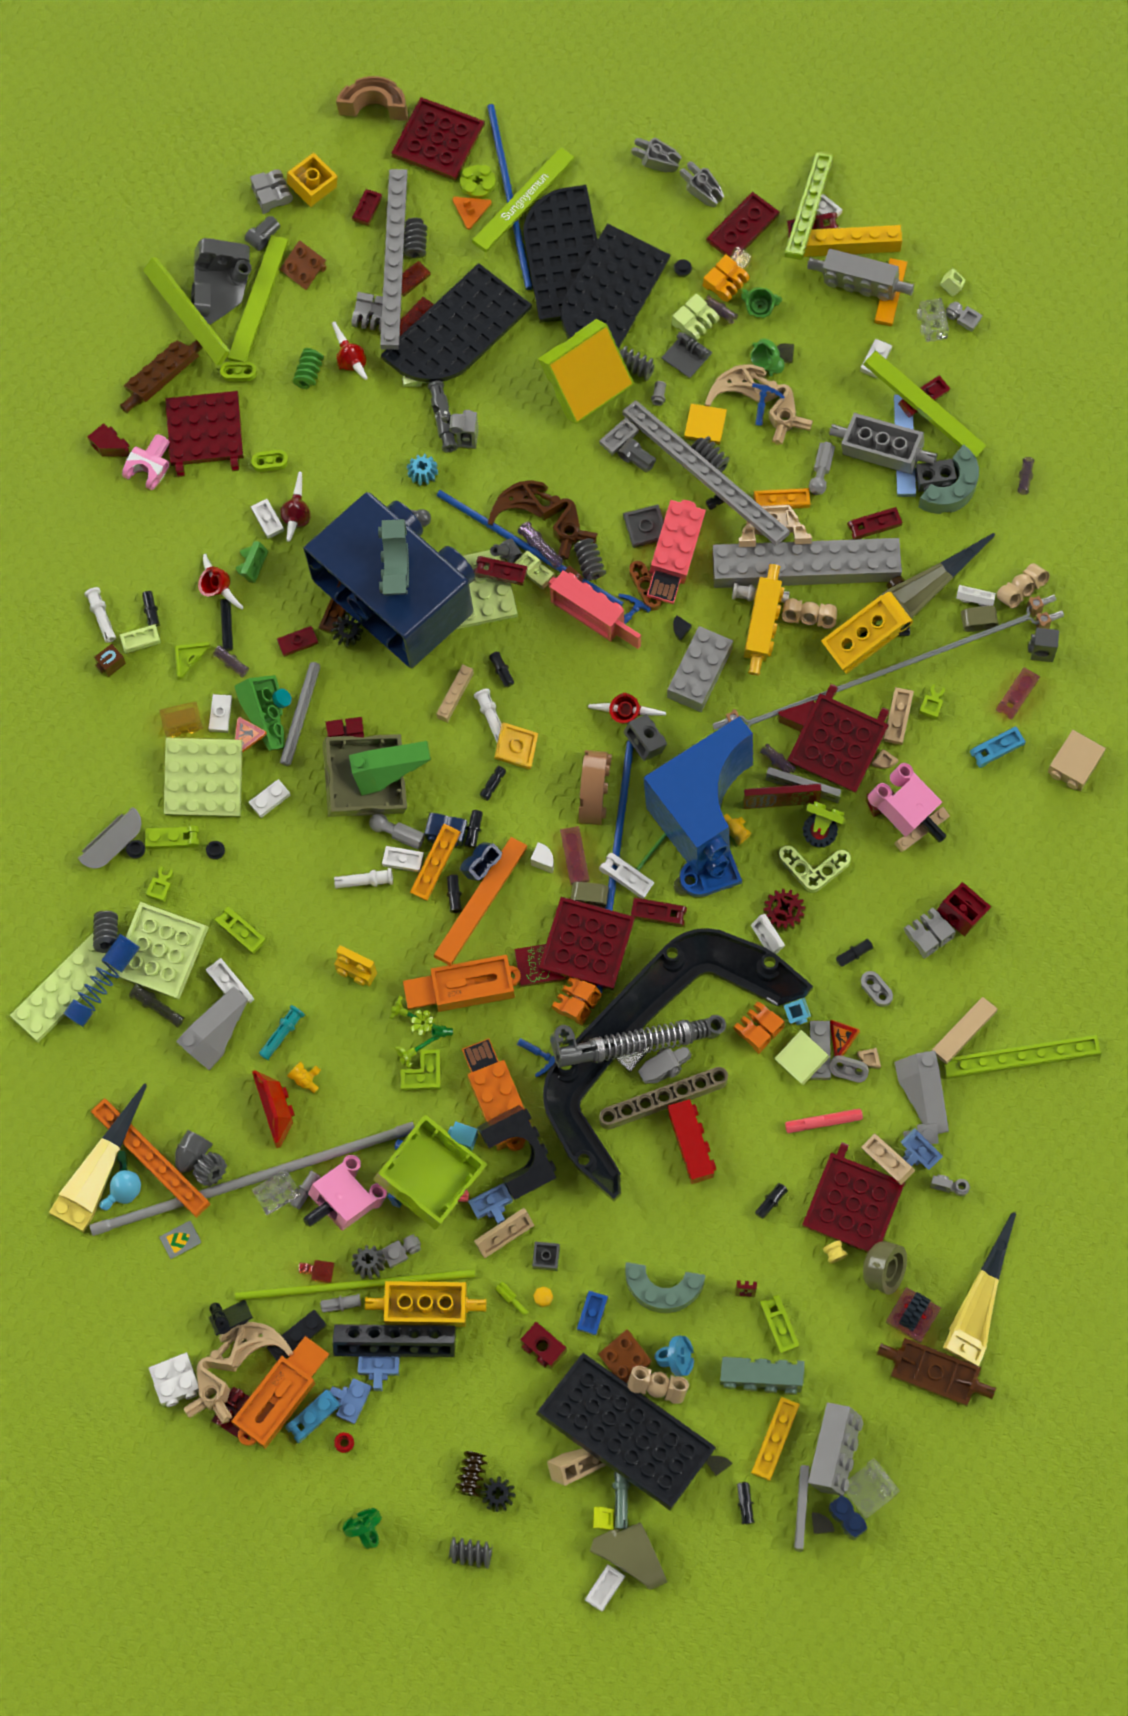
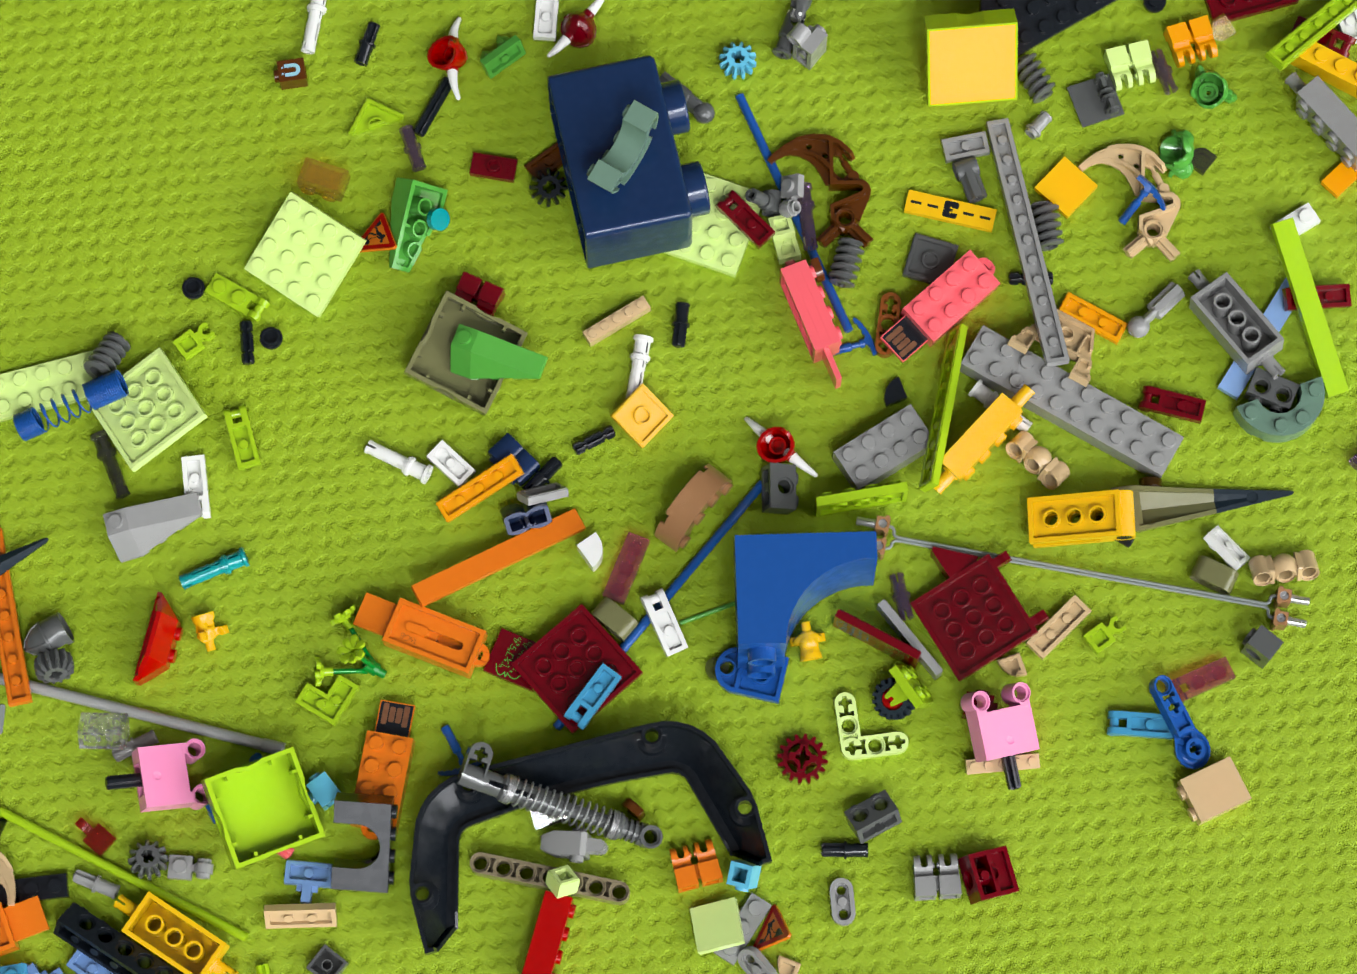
camera: 30 degrees right, 5 degrees up
(111, 840) = (174, 264): light grey brick -> none
(140, 638) = (337, 69): yellowish green plate -> none
(199, 863) = (247, 344): none -> black axle
(220, 713) = (367, 197): white plate -> none
(269, 798) = (359, 317): white plate -> none
(300, 714) = (446, 246): light grey axle -> none
(355, 966) = (325, 543): yellow plate -> none
(399, 831) = (465, 432): light grey piece -> none
(454, 894) = (479, 532): black axle -> none
(483, 839) = (542, 494): none -> light grey tile
(519, 531) = (791, 188): none -> light grey plate
(583, 996) = (522, 728): orange legs -> none
(612, 952) = (593, 695): none -> dark azure plate
(637, 485) = (950, 211): none -> yellow tile
(658, 912) = (672, 680): dark red plate -> none
(675, 1092) = (562, 881): none -> yellowish green slope
(689, 1014) = (634, 809): none -> reddish brown tile
(707, 710) = (854, 499): none -> lime plate
(723, 614) = (943, 408): none -> lime tile
(767, 934) = (767, 775): white plate -> none
(859, 917) = (874, 818): none -> dark grey brick
(1024, 729) = (1180, 726): none -> blue beam

